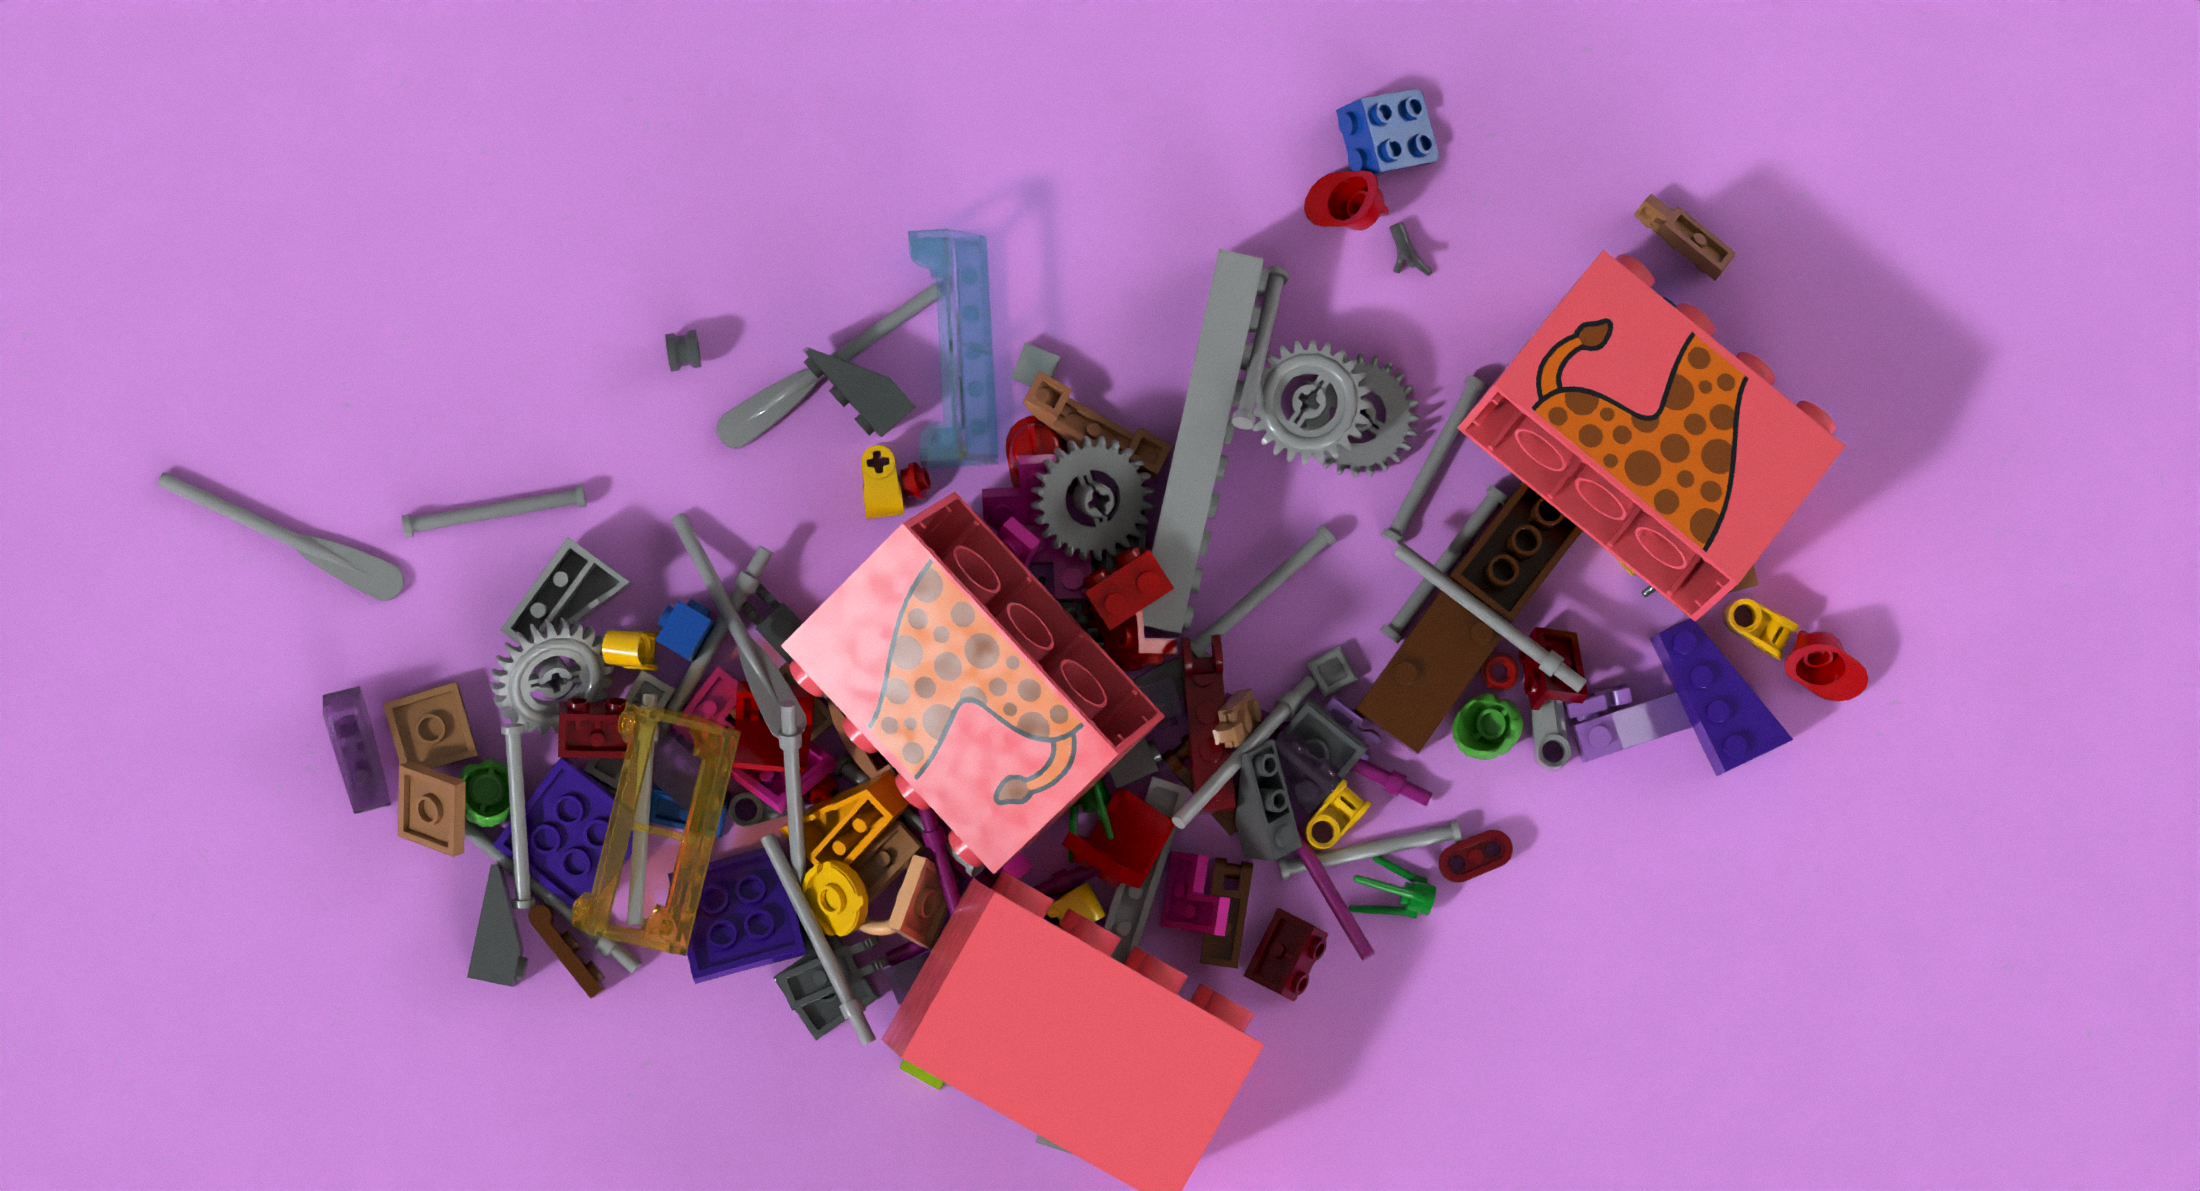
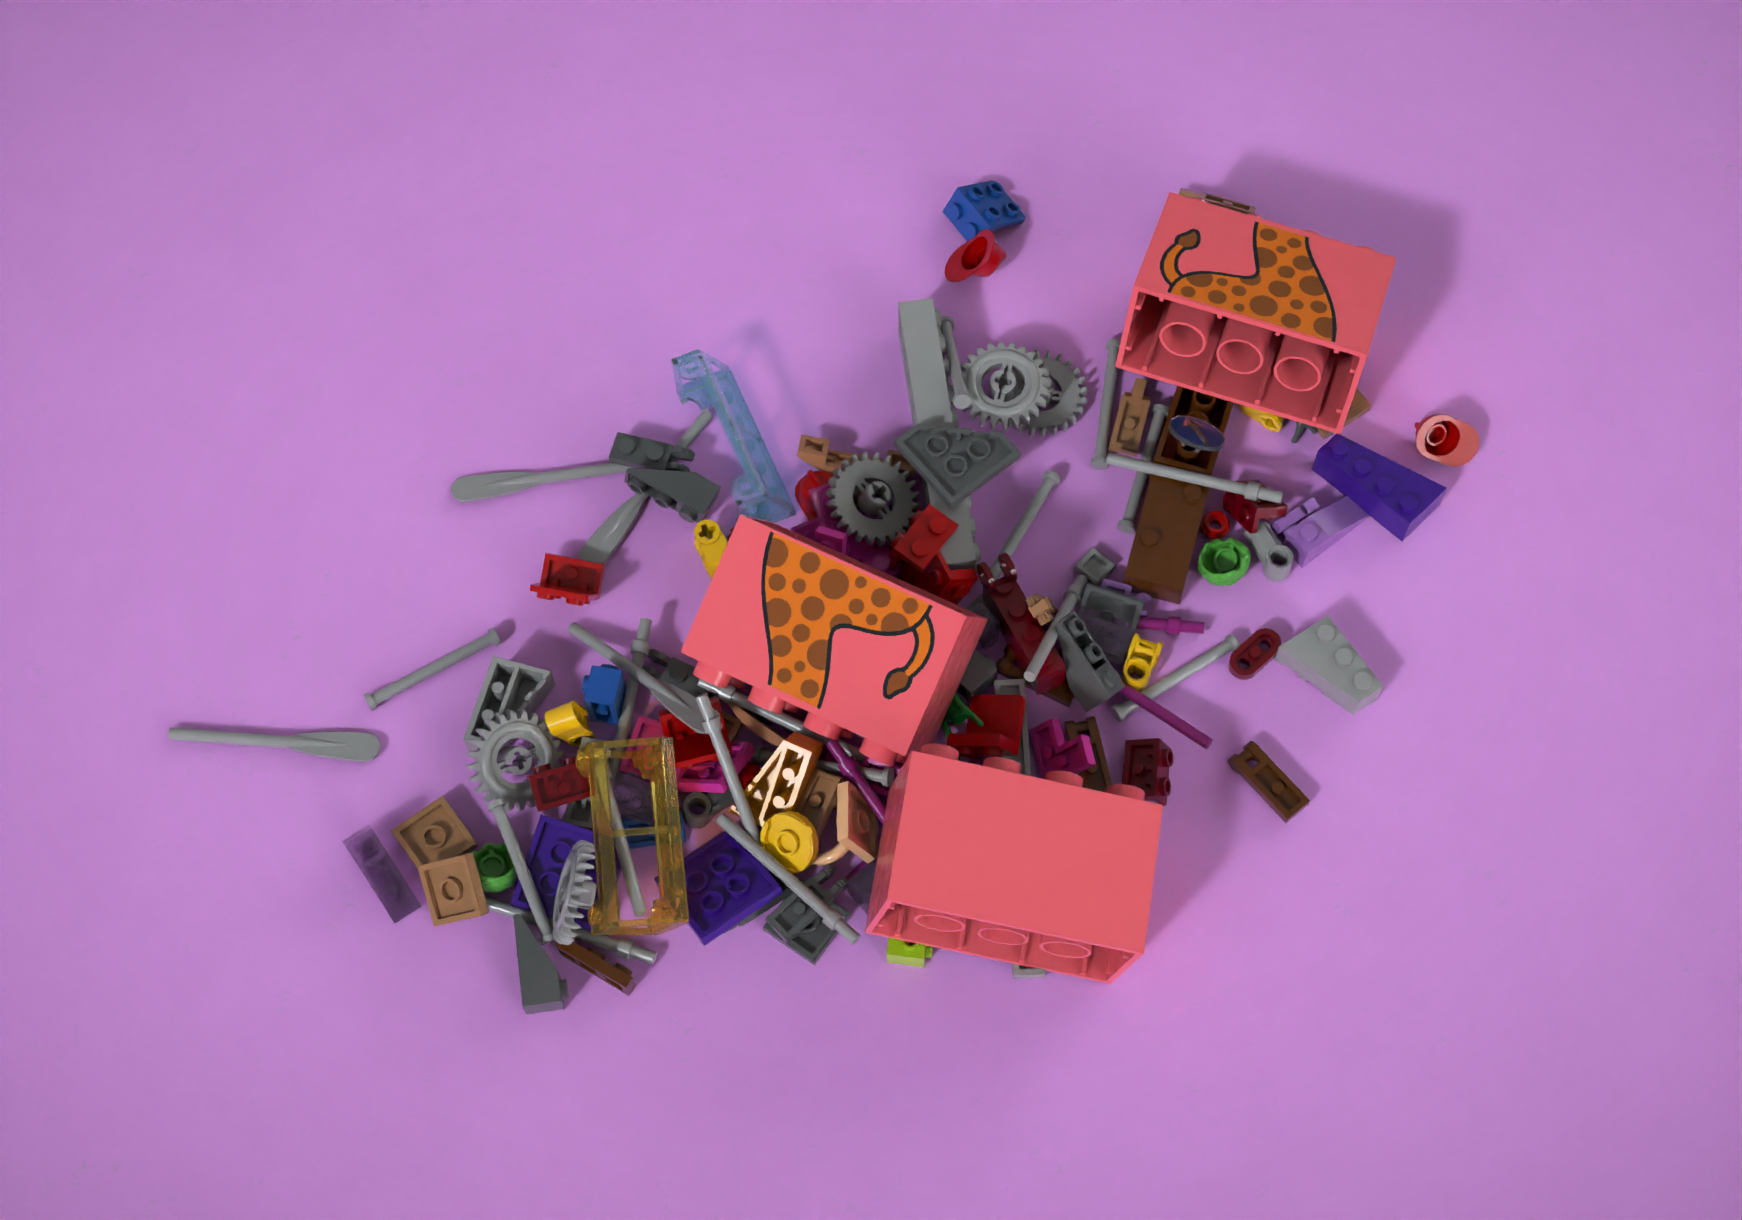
camera: 15 degrees left, 20 degrees down
(563, 879) = (573, 892): none -> light grey gear
(647, 291) = (499, 484): none -> light grey piece
(683, 350) = (536, 511): dark grey wheel -> none
(690, 463) = (569, 578): none -> red bracket
(843, 325) = (648, 454): none -> dark grey hinge
(1031, 362) = (792, 437): light grey tile -> none
(1206, 496) = (956, 459): none -> dark grey plate
(1405, 250) = (1028, 280): dark grey bar -> none
(1416, 895) = (1222, 695): green plant -> none
(1424, 1020) = (1269, 781): none -> reddish brown plate
(1453, 496) = (1130, 420): none -> medium nougat hinge
(1513, 566) = (1196, 433): none -> piece
(1559, 907) = (1332, 665): none -> light grey wedge
(1762, 627) = (1386, 432): yellow piece -> none

